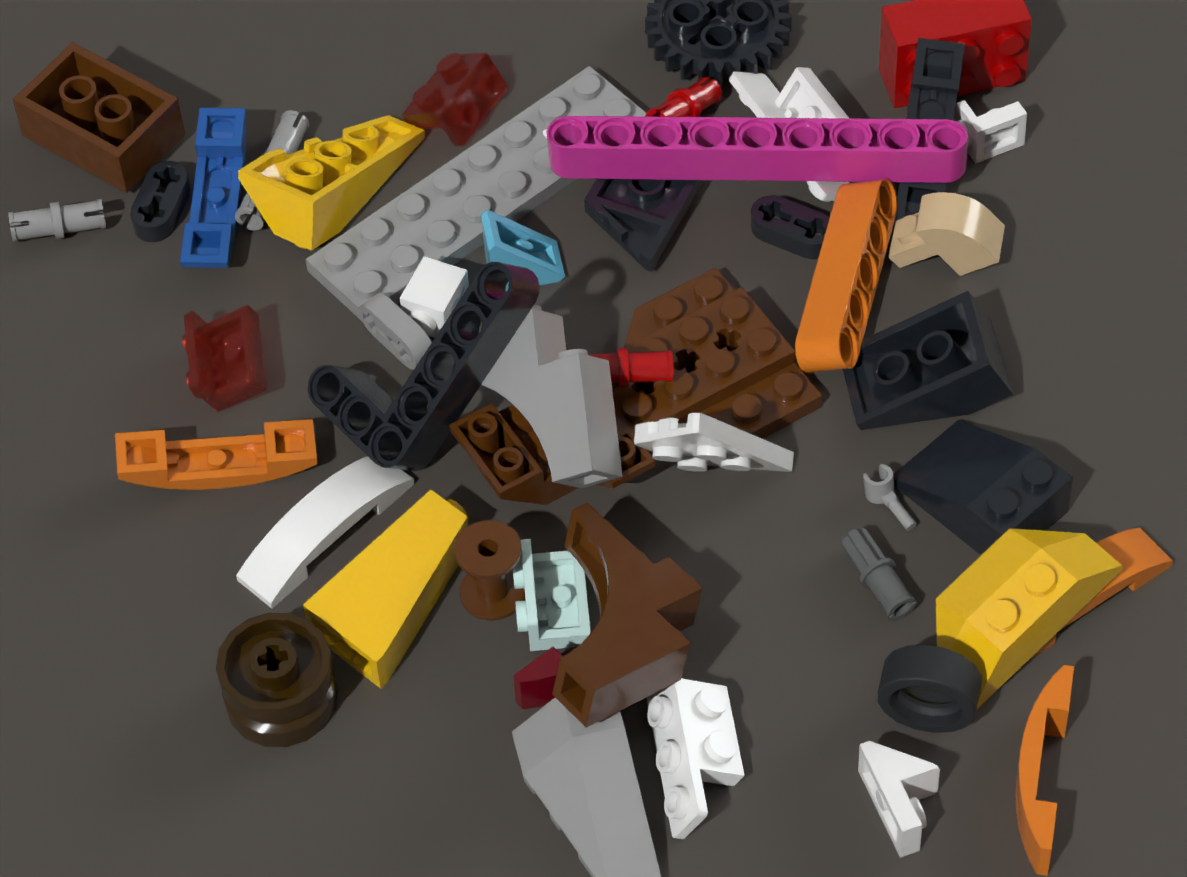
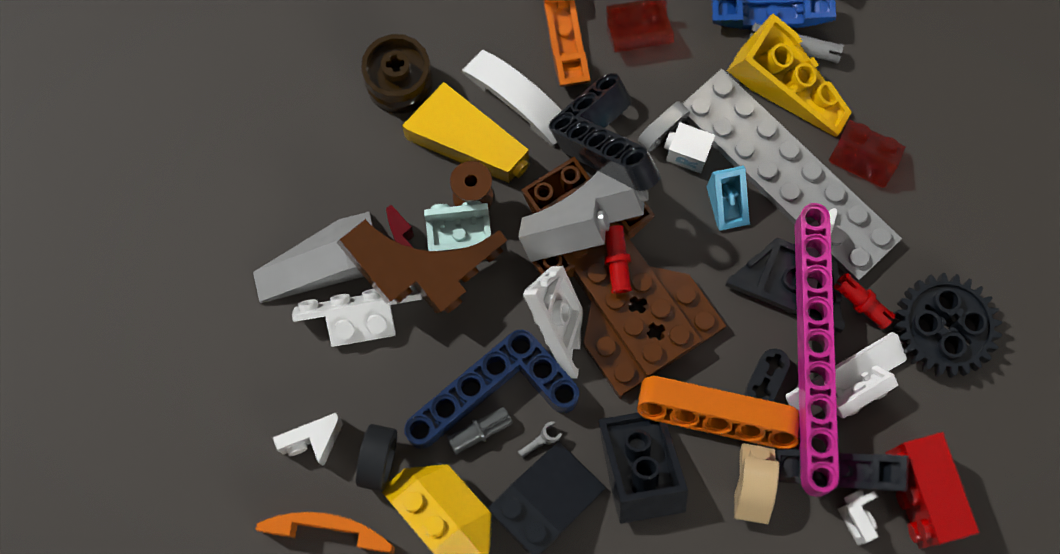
camera: 85 degrees right, 20 degrees up
(805, 556) = (489, 383): none -> dark blue beam

